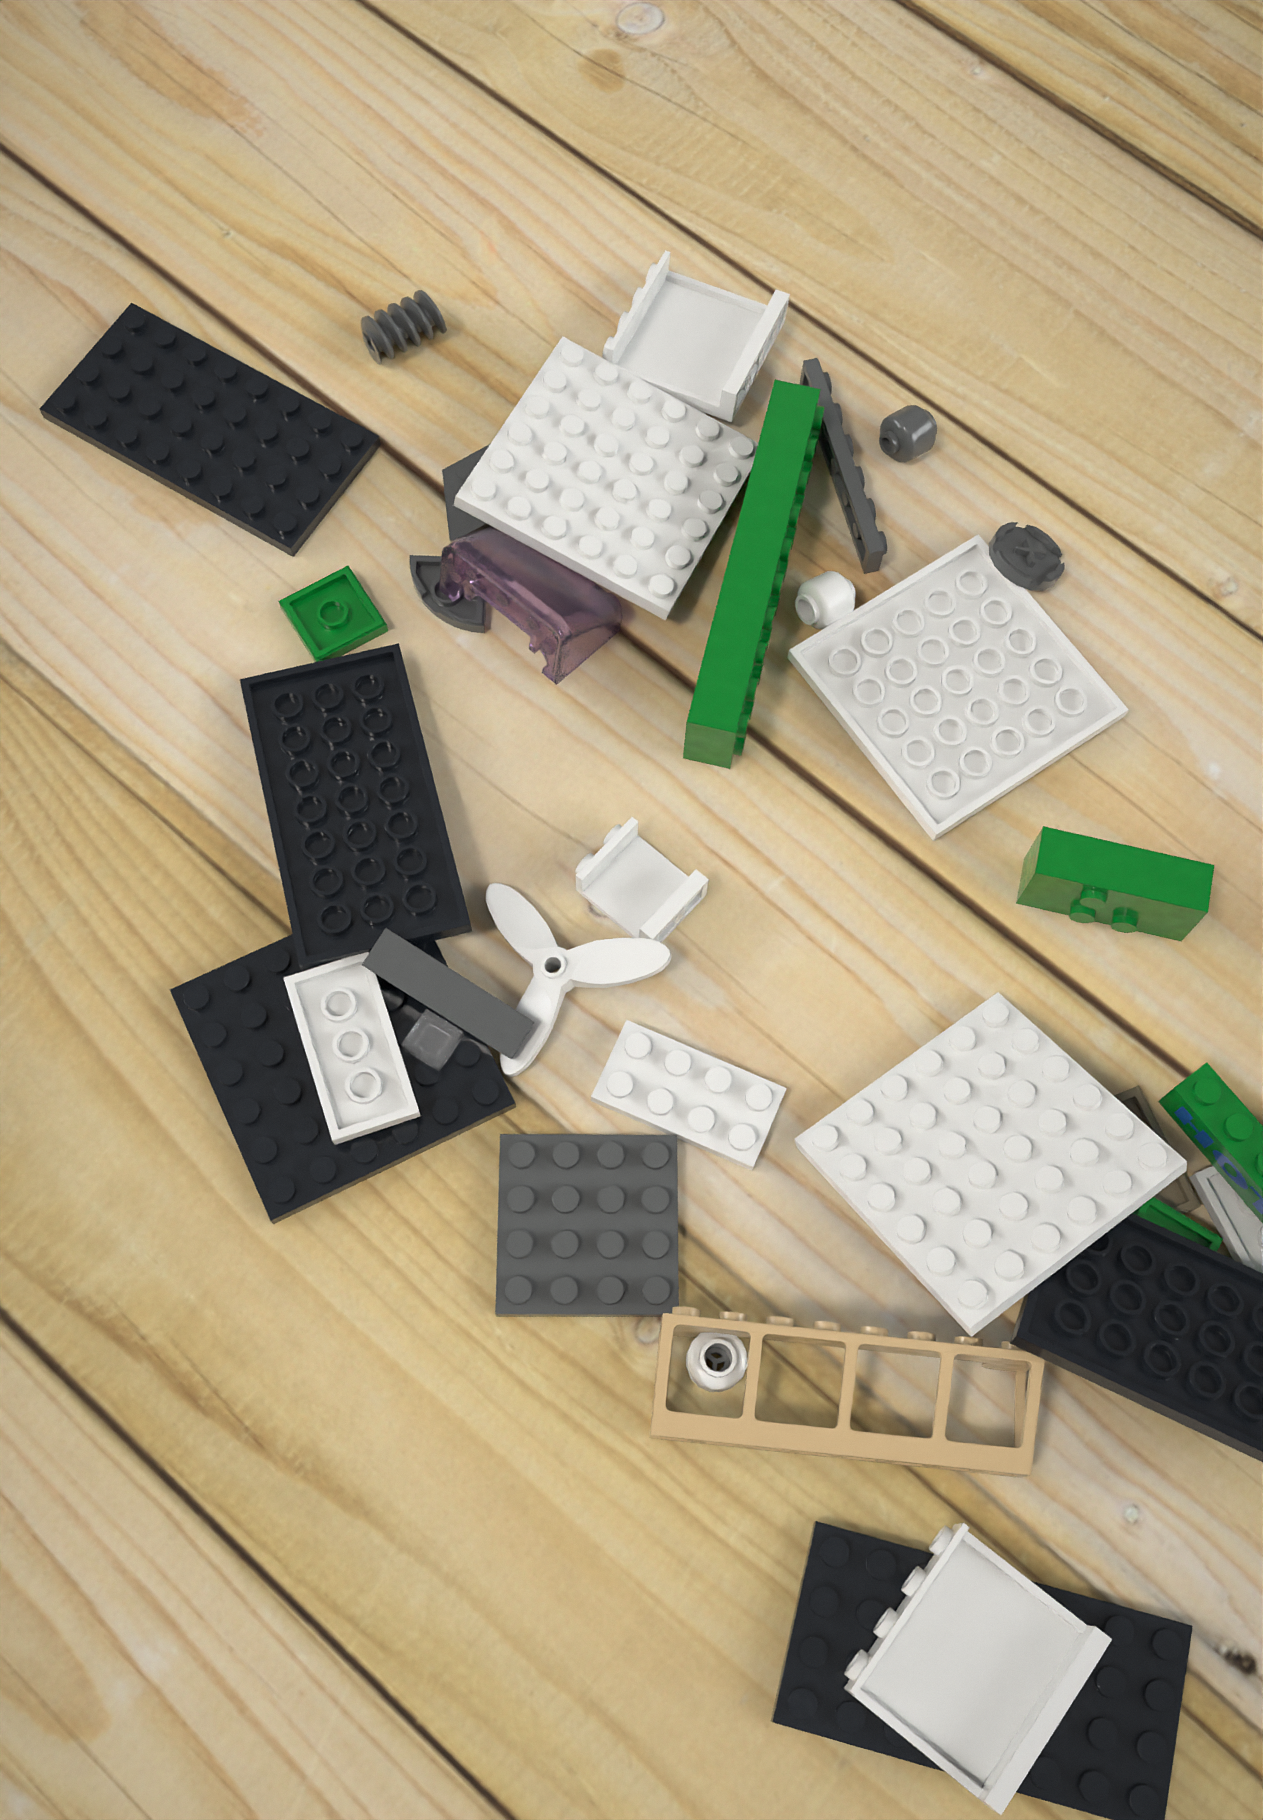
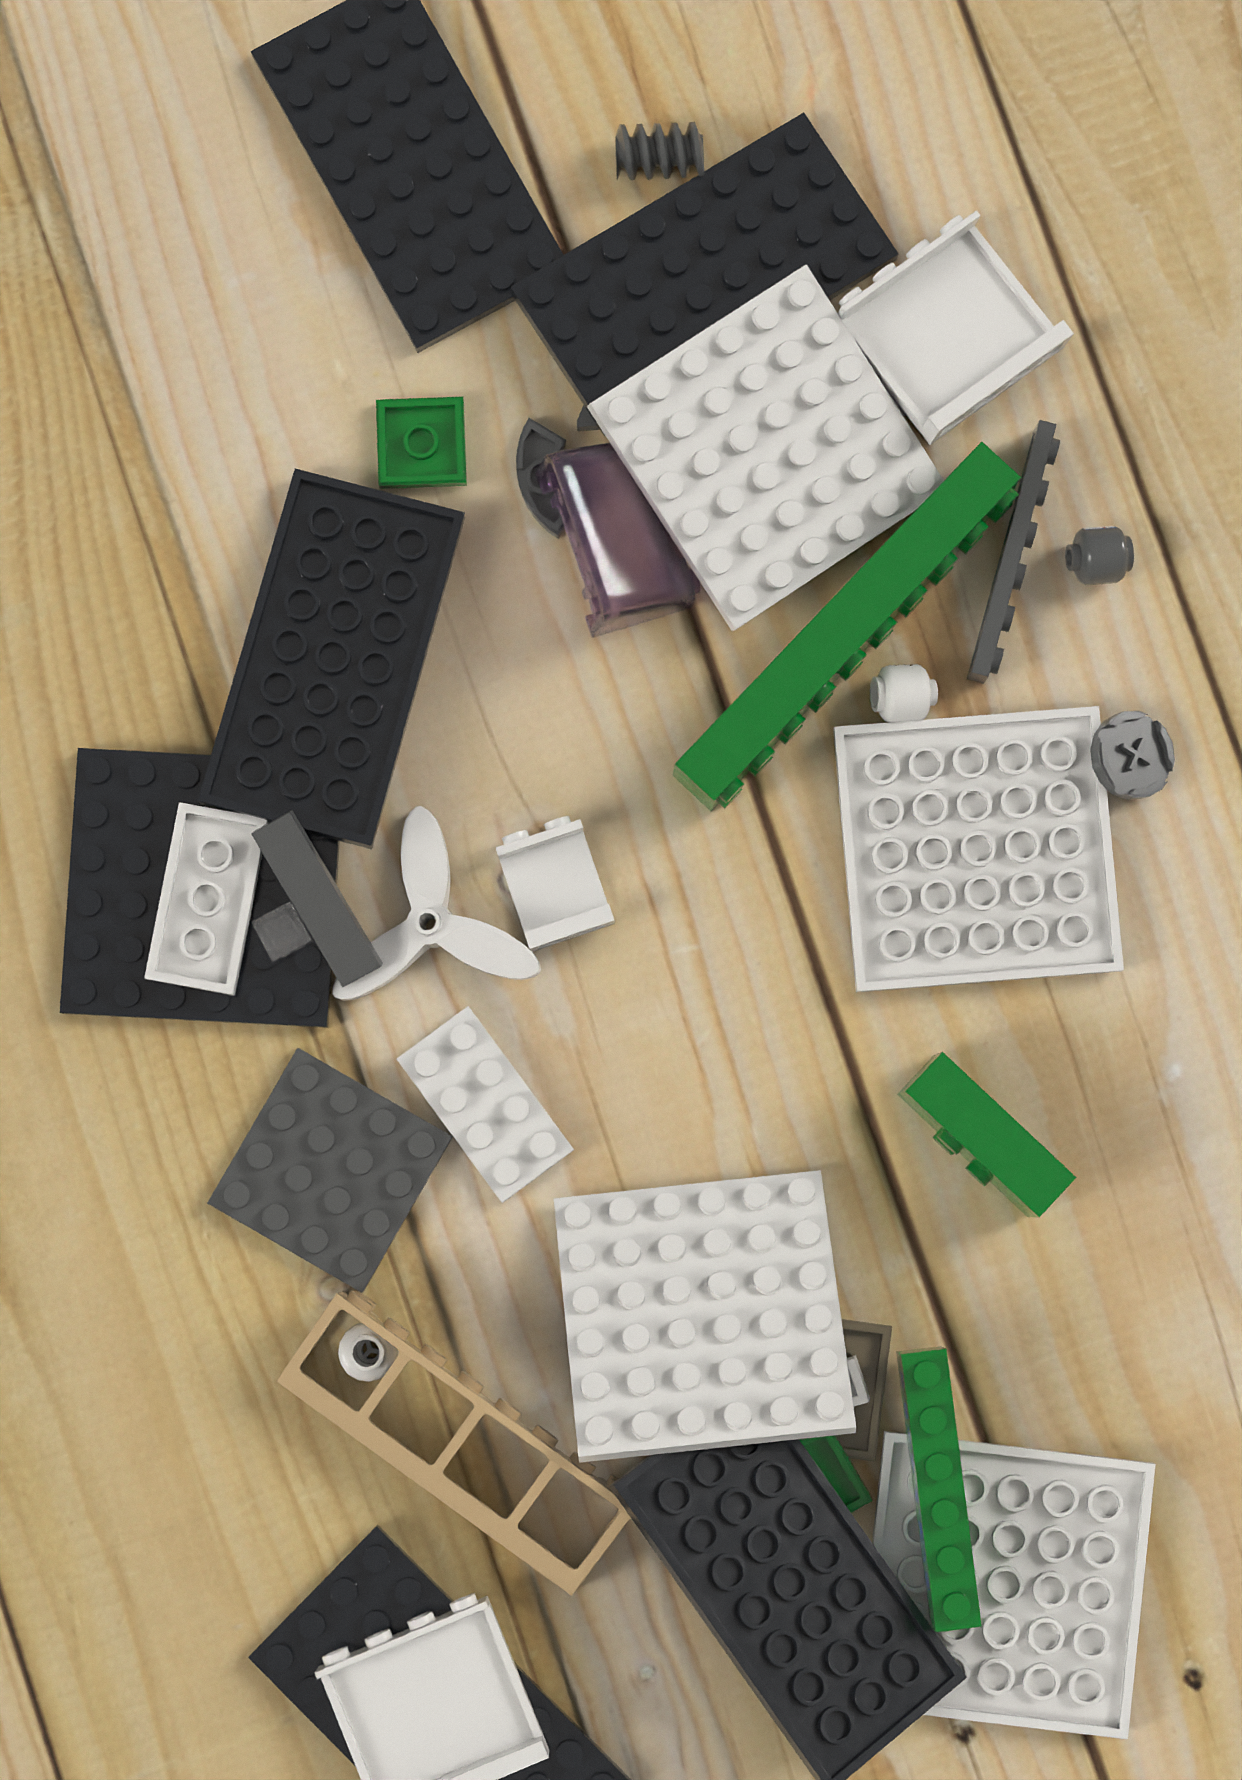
camera: 30 degrees right, 15 degrees up
(470, 384) = (701, 257): none -> black plate

